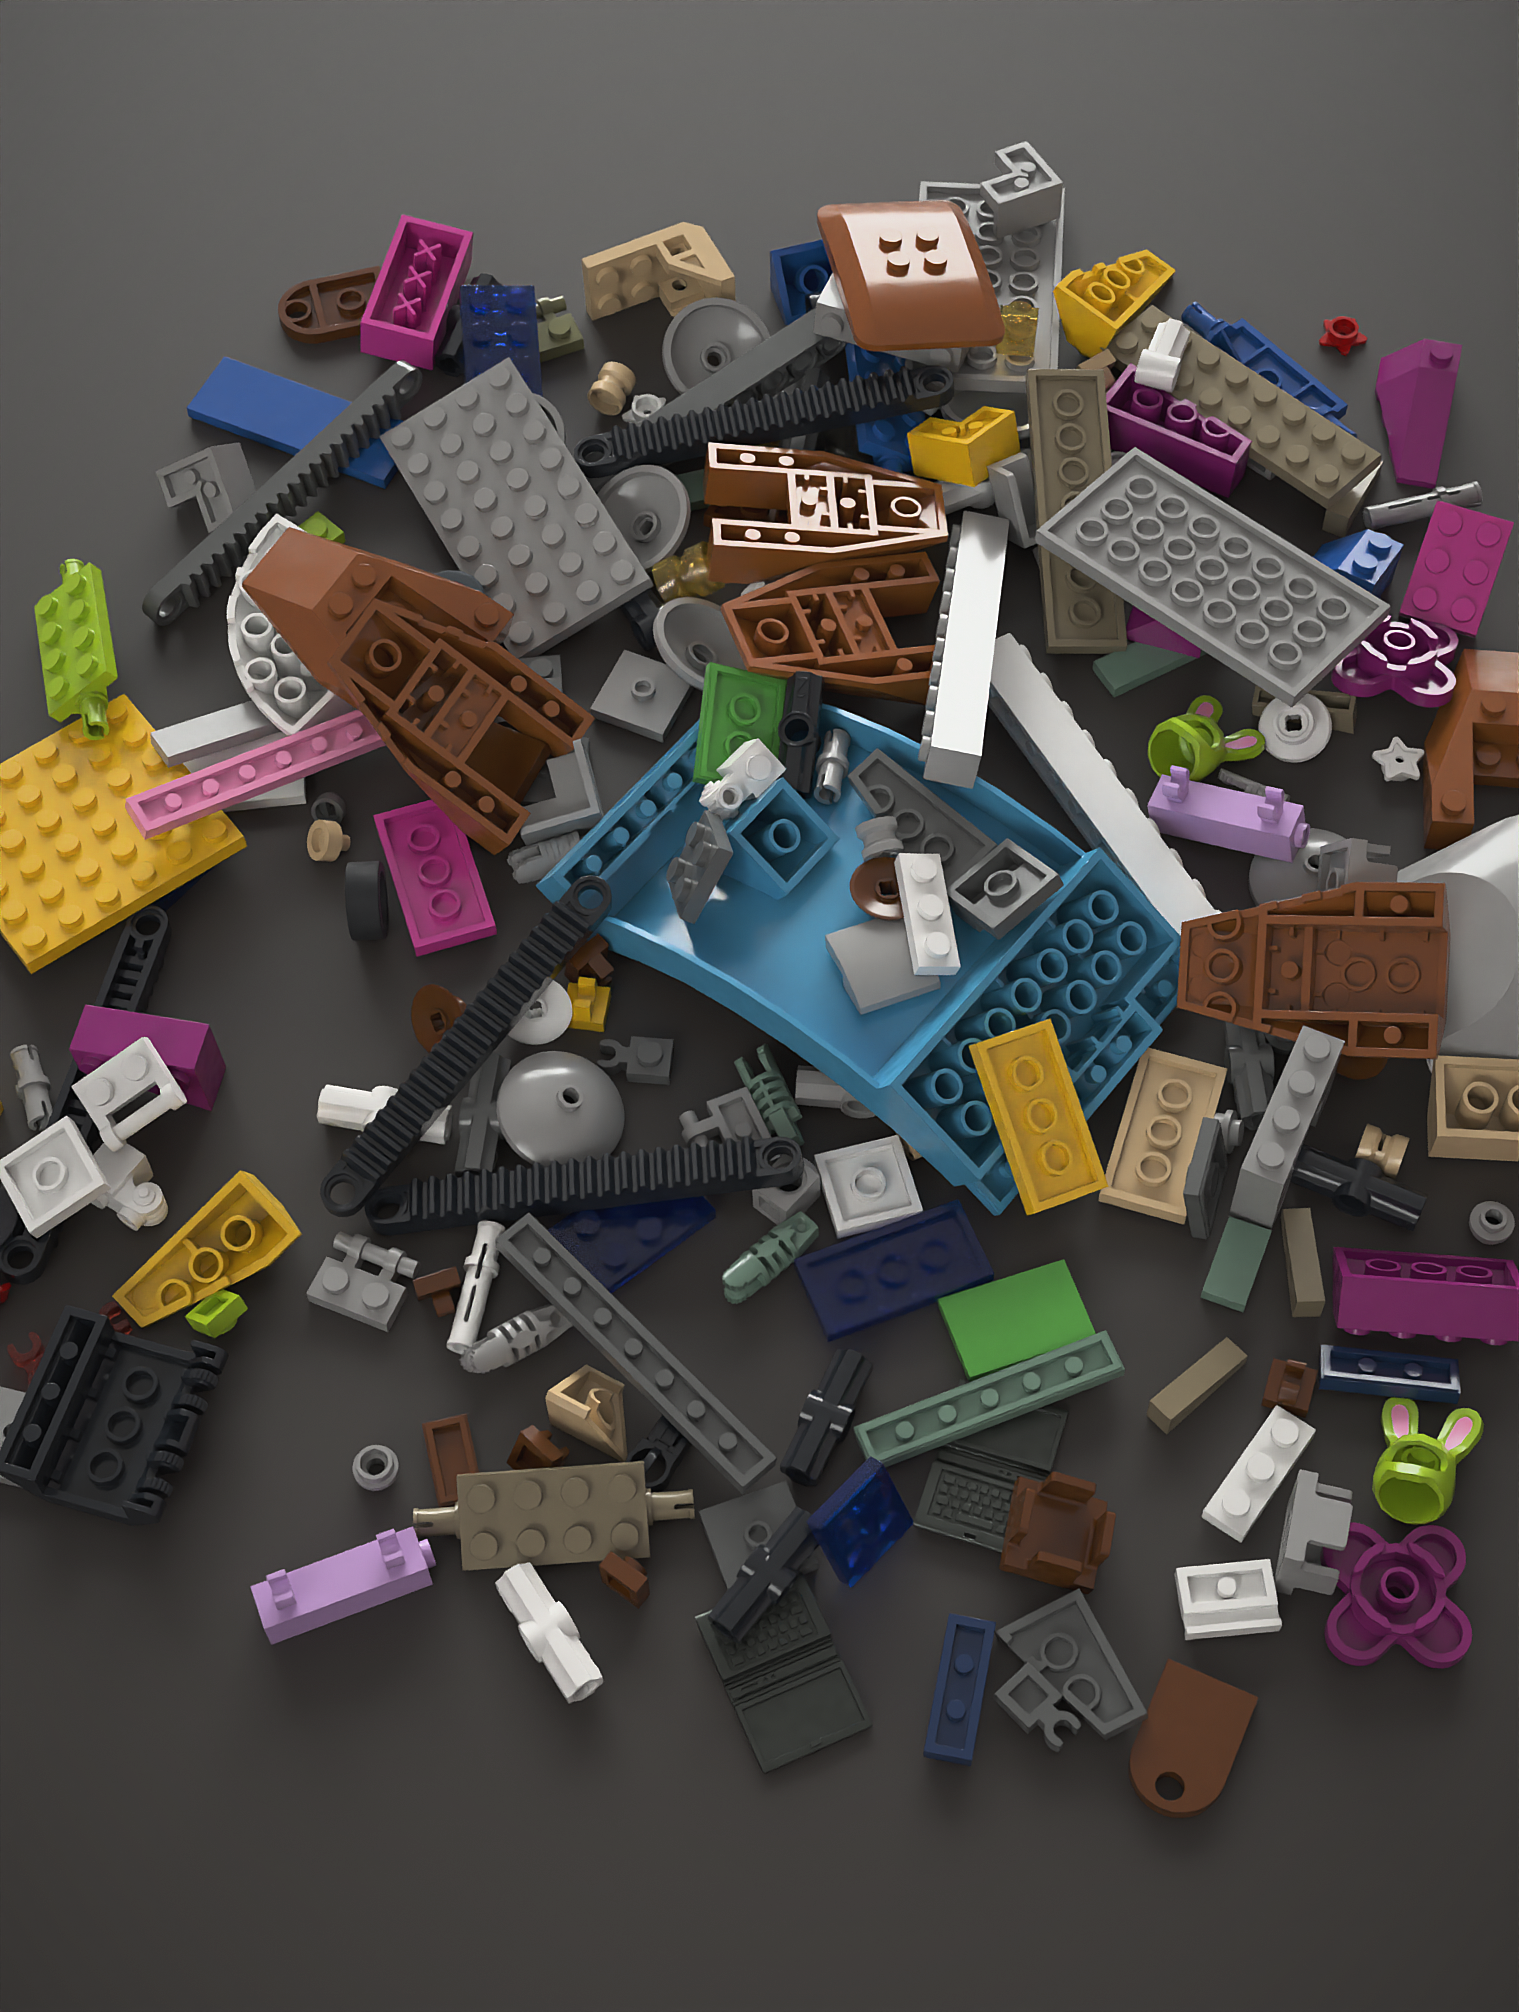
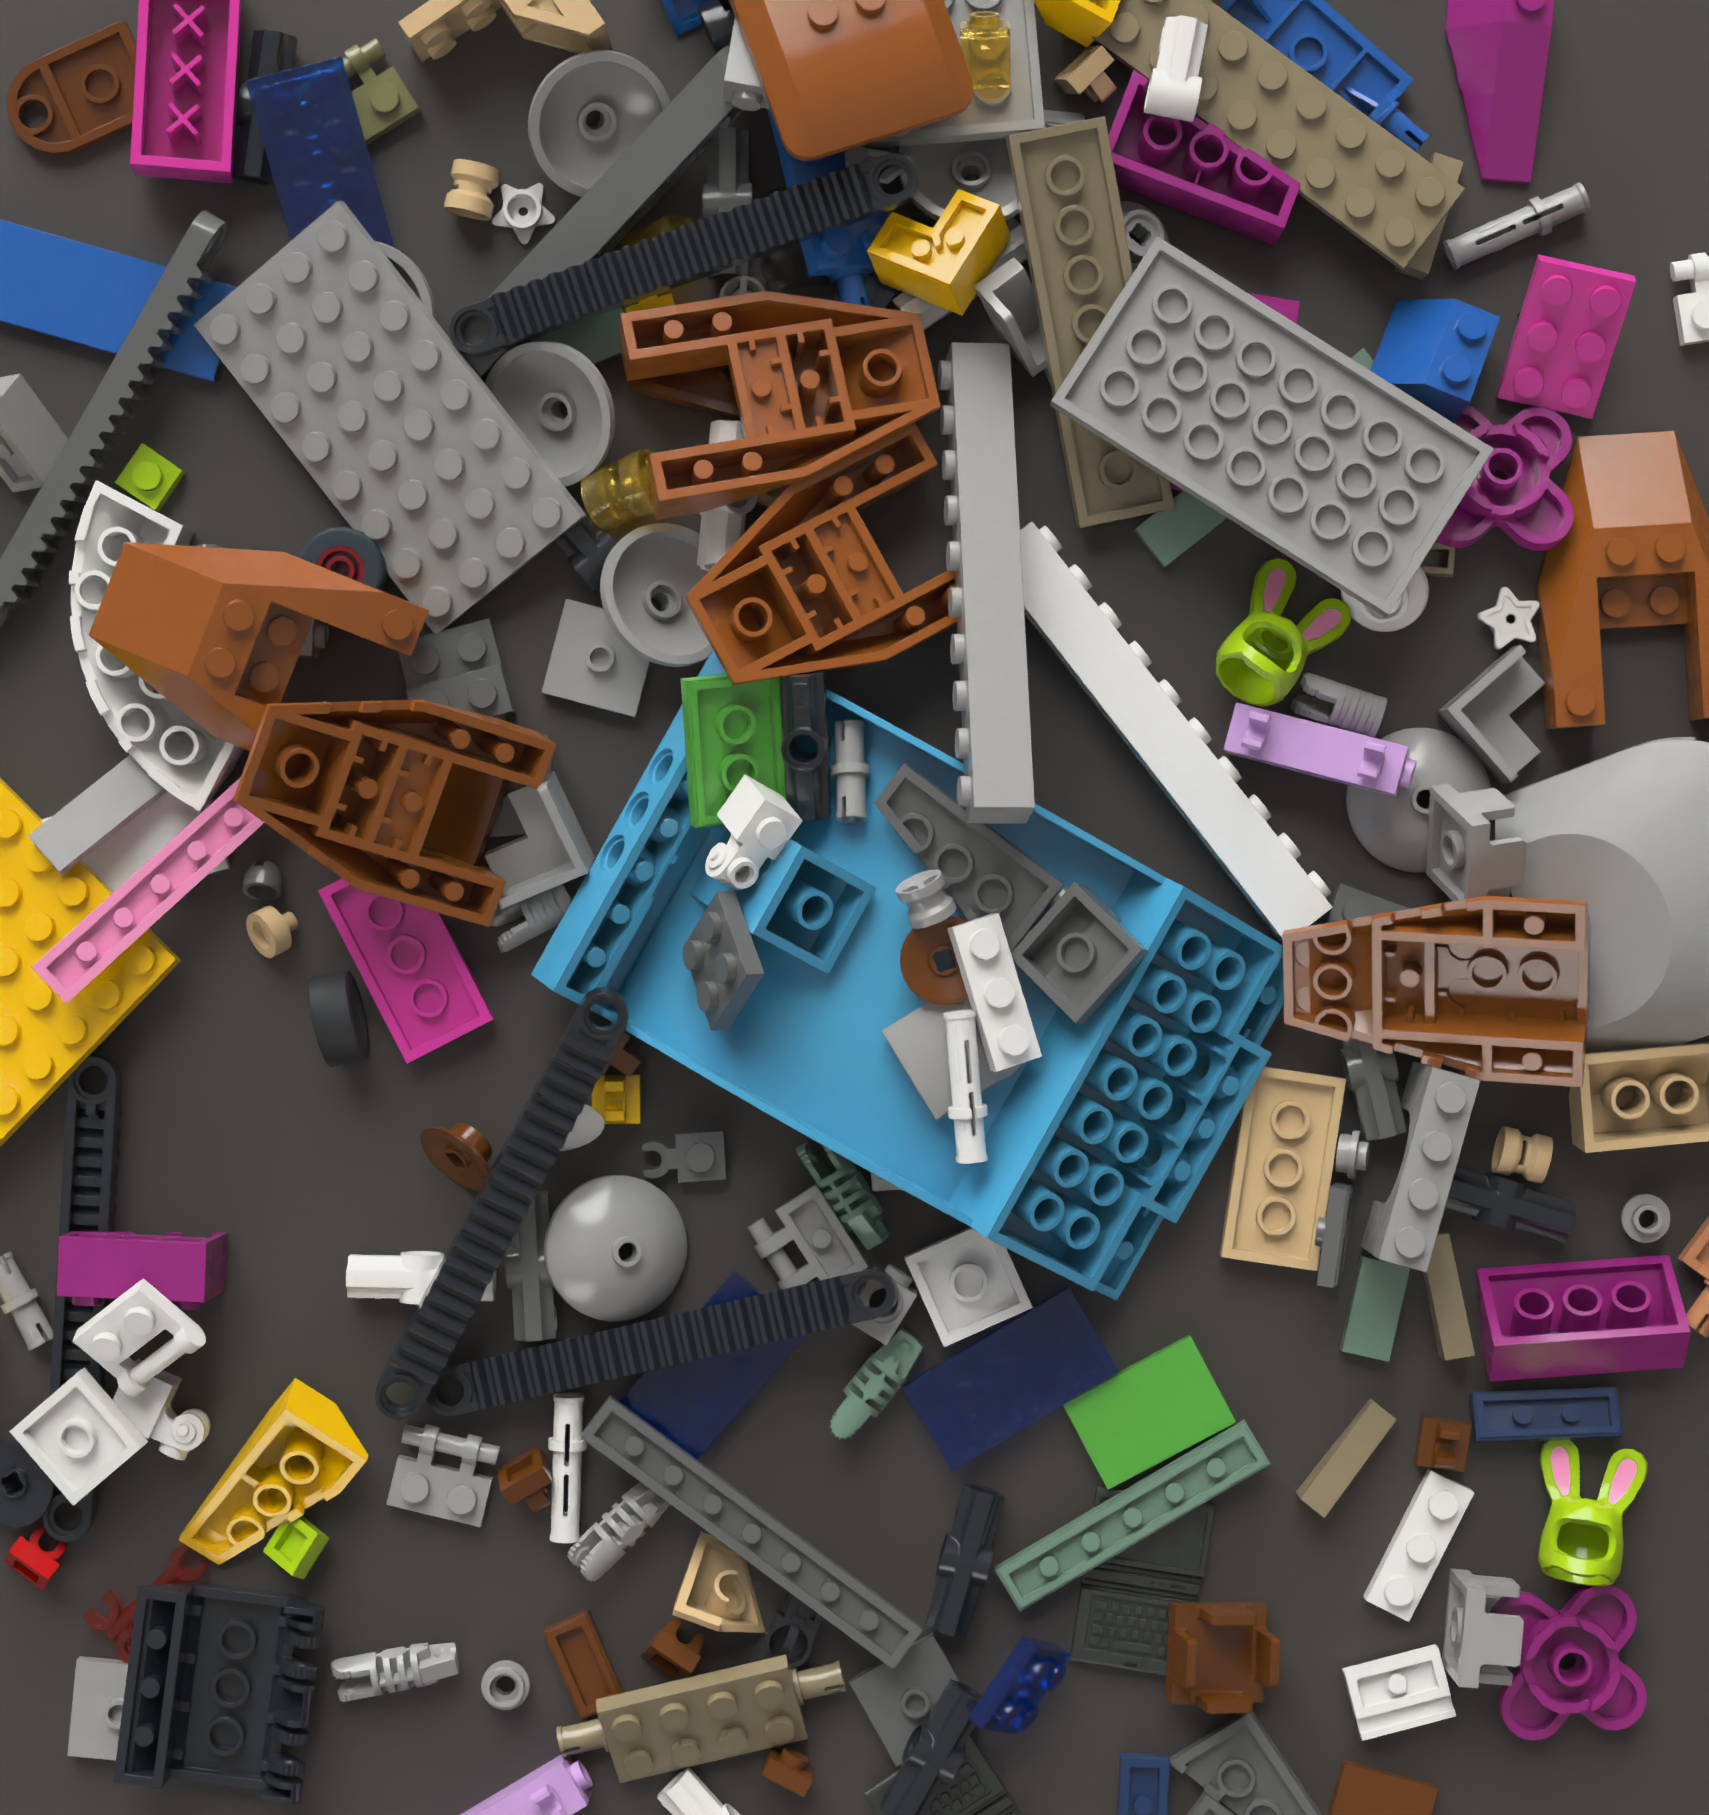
camera: 10 degrees left, 30 degrees up
(277, 1434) = (394, 1669): none -> light grey hinge
(889, 994) = (965, 1084): none -> white pin
(1038, 1116) = (1148, 1211): yellow plate -> none
(1378, 811) = (1482, 714): none -> light grey panel

